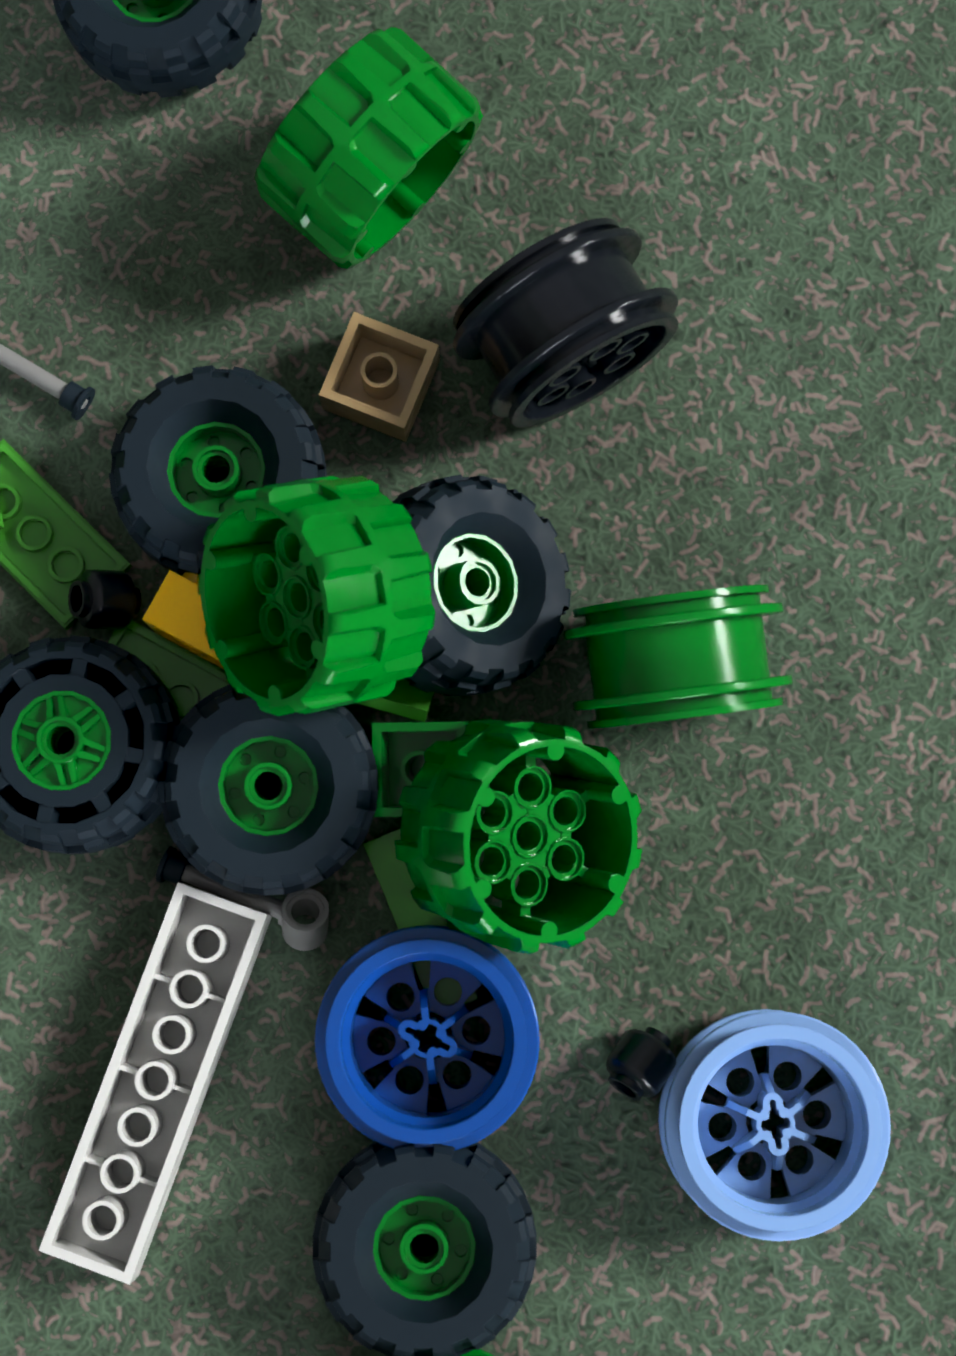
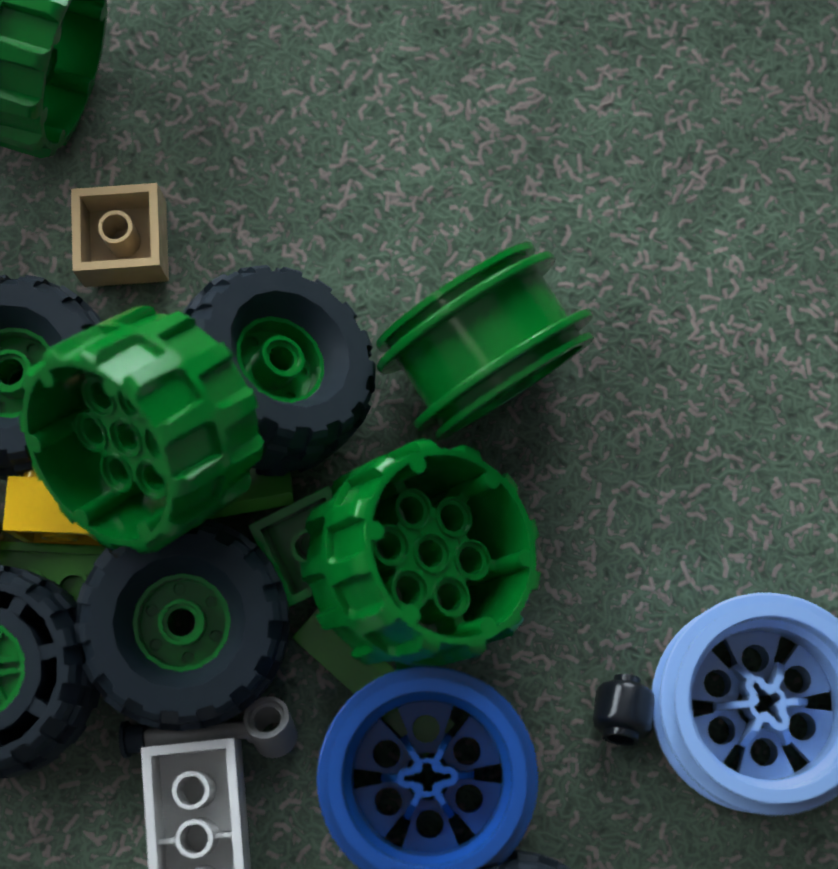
camera: 20 degrees left, 5 degrees down
(564, 321) = (252, 110): black wheel -> none

